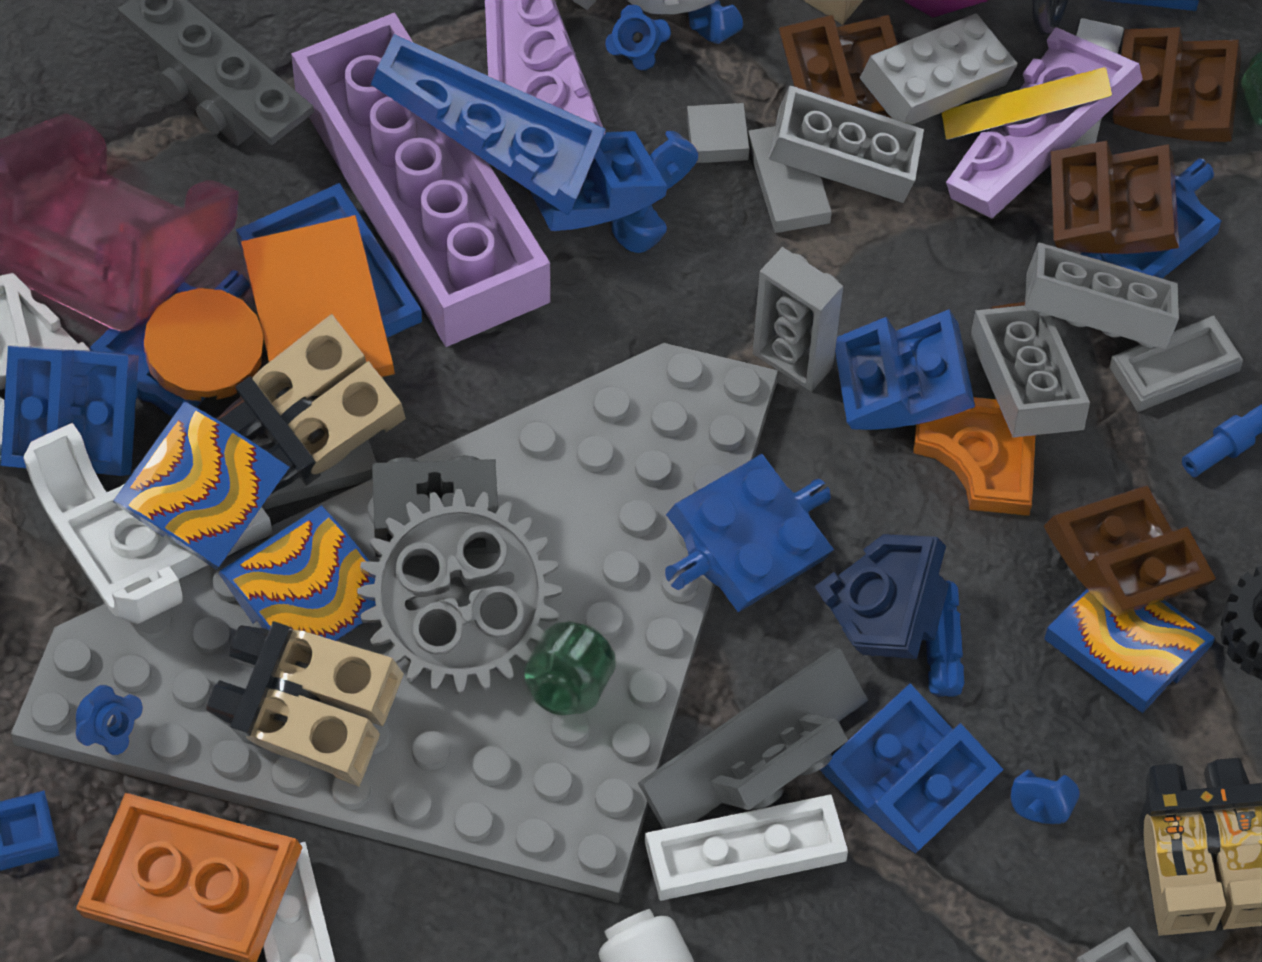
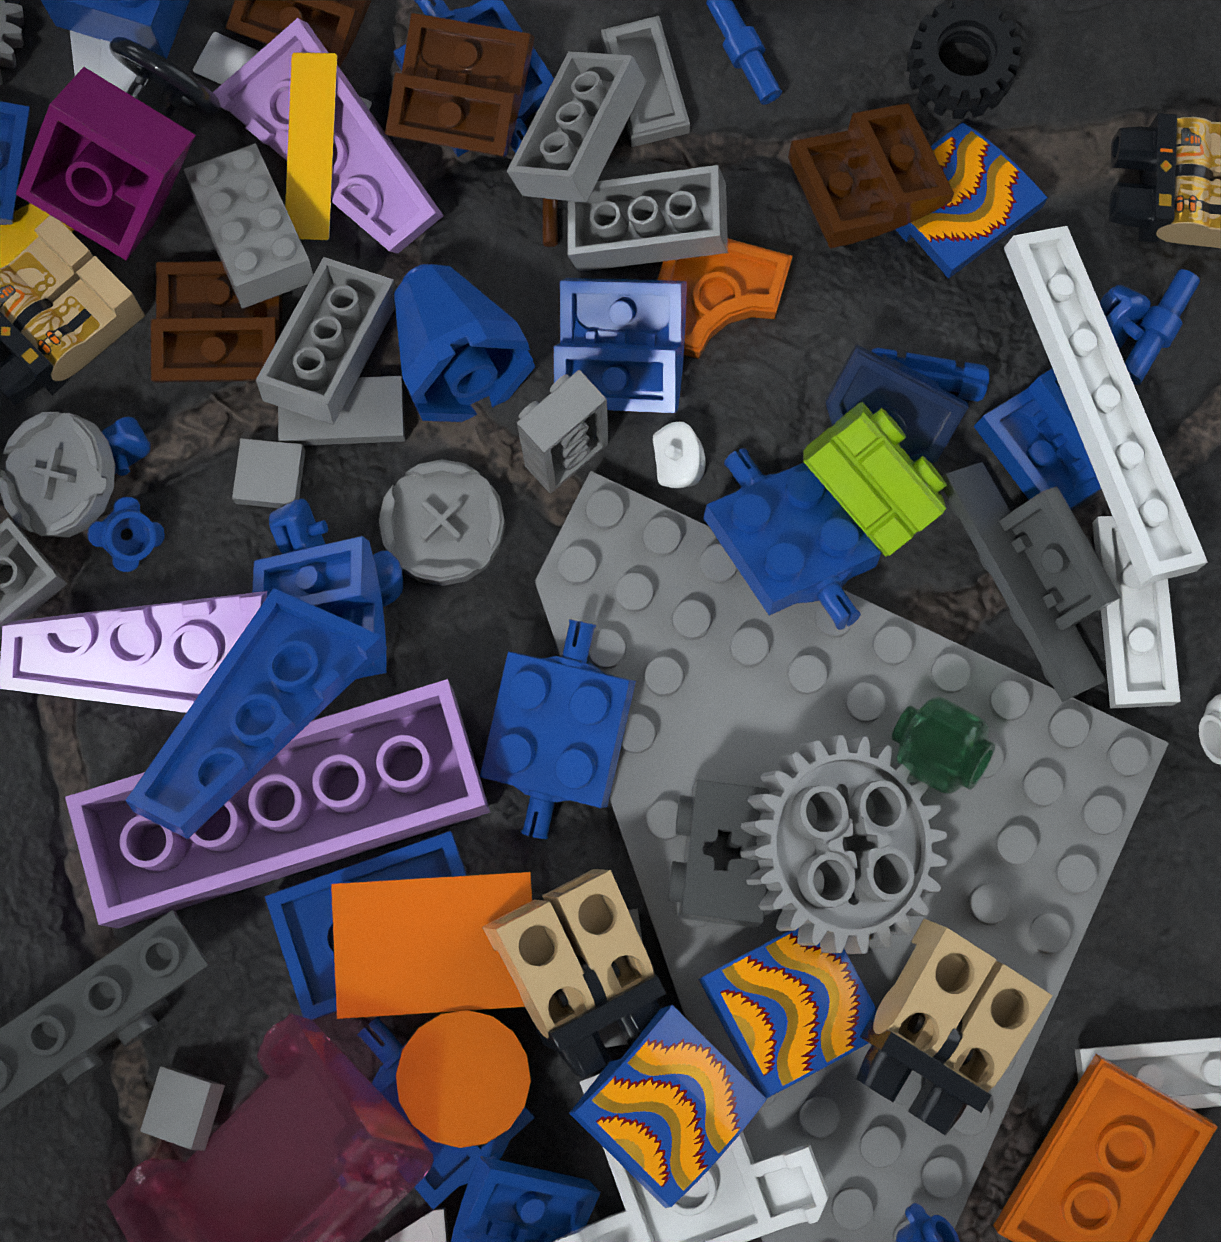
camera: 75 degrees left, 20 degrees up
(150, 161) = (182, 1108): none -> light grey tile
(529, 376) = (558, 729): none -> blue plate
(703, 270) = (442, 522): none -> light grey tile
(810, 443) = (678, 456): none -> white piece
(819, 584) = (876, 478): none -> lime brick
(865, 236) = (456, 345): none -> blue cone
(942, 774) = (1105, 405): none -> white plate
(1047, 838) = (1161, 325): none -> blue bar

